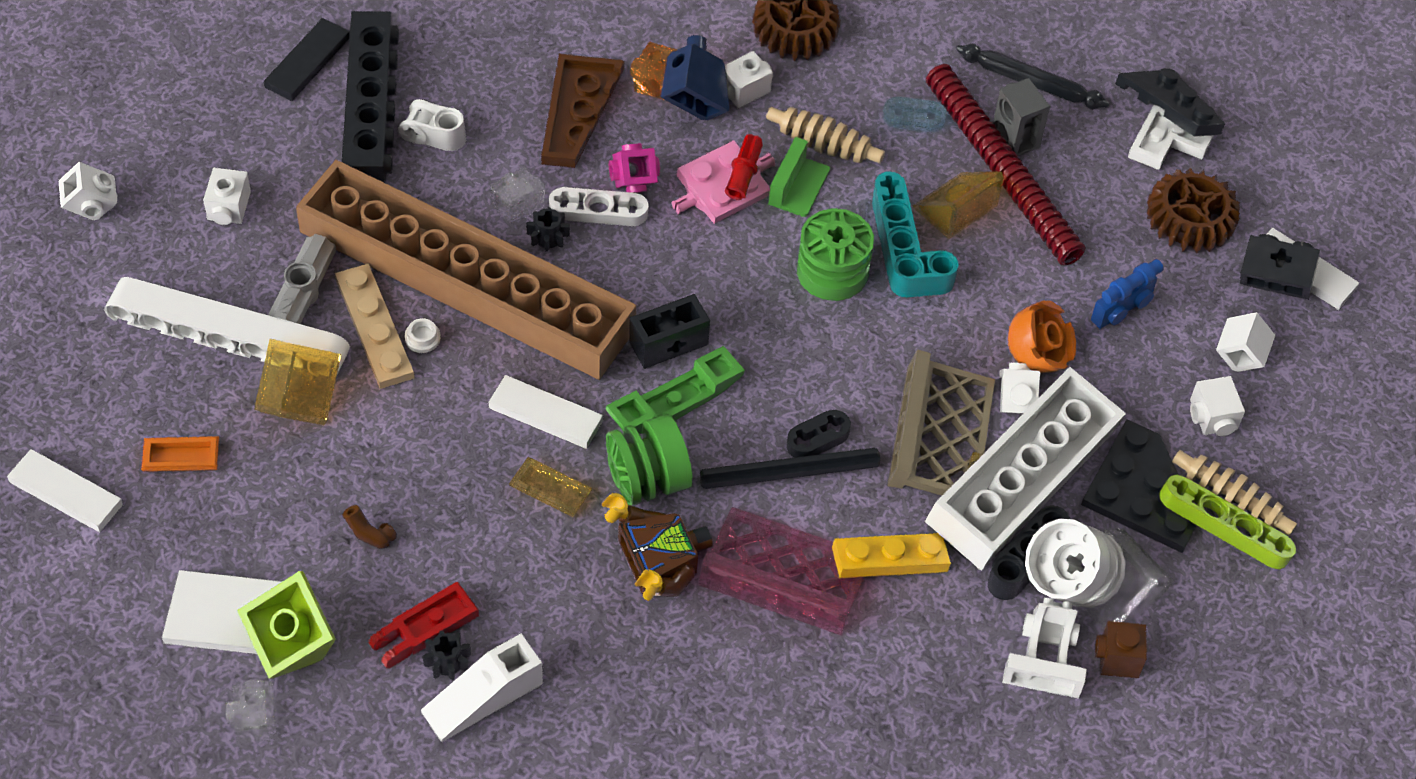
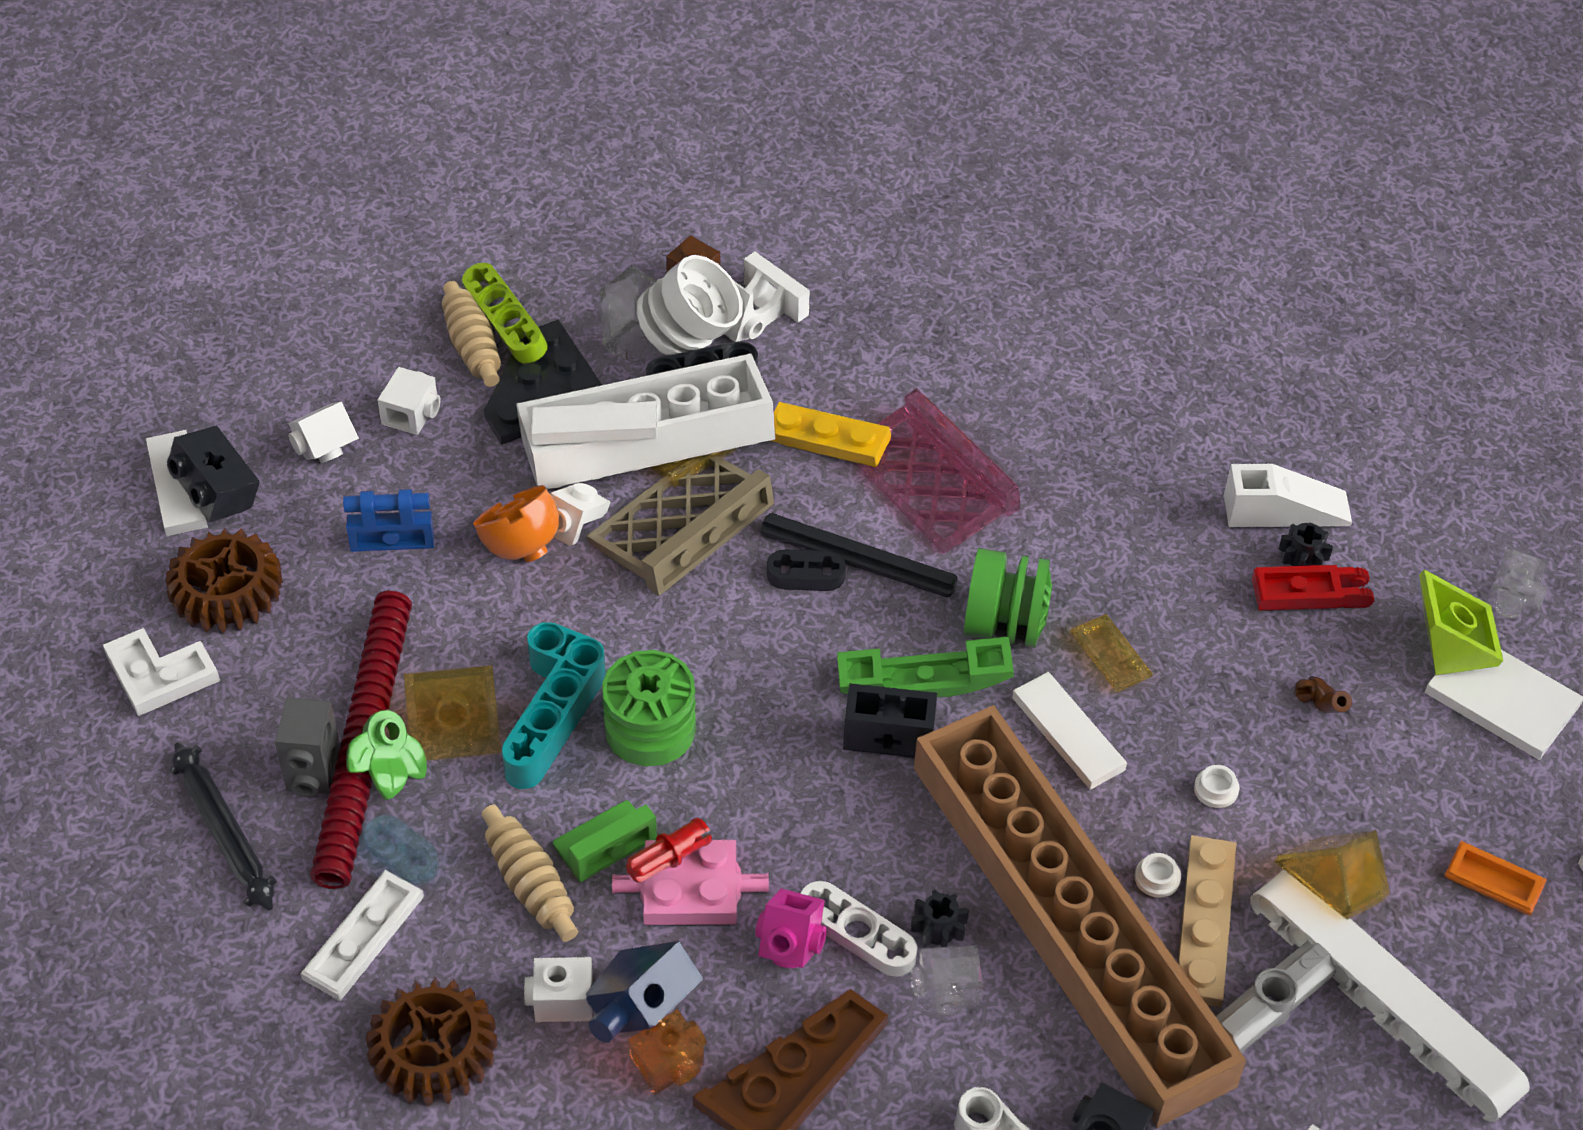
camera: 145 degrees left, 5 degrees down
(415, 420) = (1216, 786): none -> white plate
(657, 547) = (1049, 526): torso -> none
(891, 61) = (362, 935): none -> white tile
(972, 146) = (386, 759): none -> plate
(1046, 407) = (594, 423): none -> white tile
(1178, 100) = (110, 698): black wing -> none

